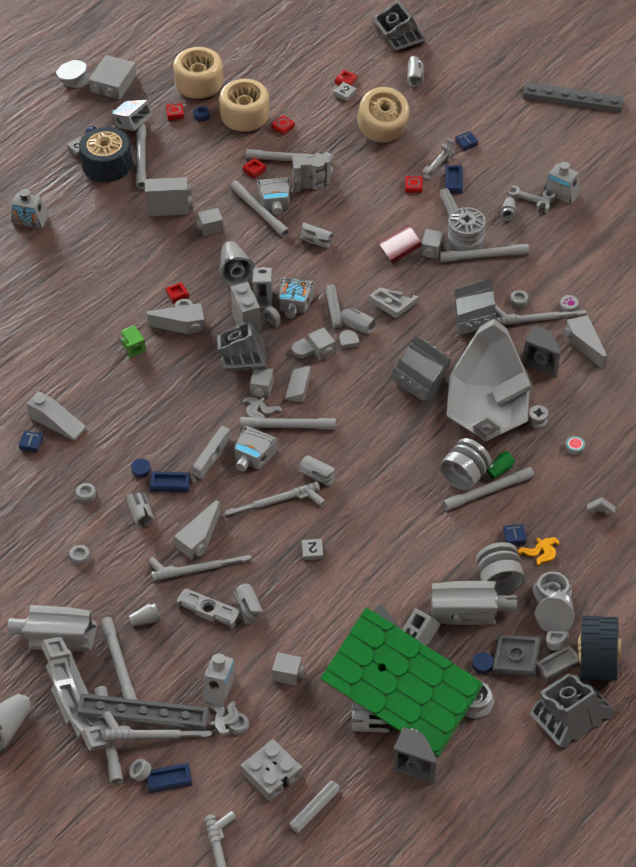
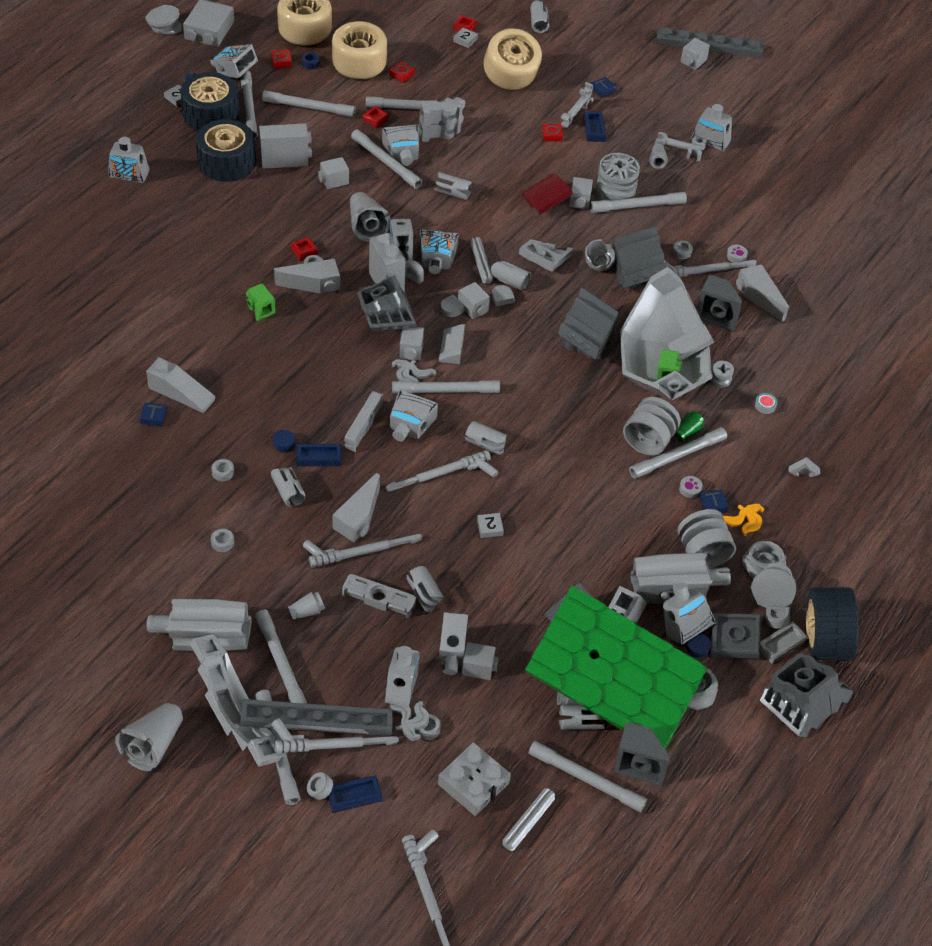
camera: 10 degrees left, 0 degrees up
(115, 200) = (226, 150): none -> black wheel
(220, 160) = (278, 98): none -> light grey piece
(265, 650) = (453, 642): none -> light grey torso
(399, 790) = (624, 795): none -> light grey piece
(440, 303) = (600, 255): none -> light grey hair
(448, 200) = (592, 149): light grey axle -> none
(473, 634) = (686, 614): none -> light grey torso
(490, 406) = (668, 363): none -> bright green brick
(495, 520) = (690, 487): none -> light grey tile
(556, 108) = (695, 53): none -> light grey brick

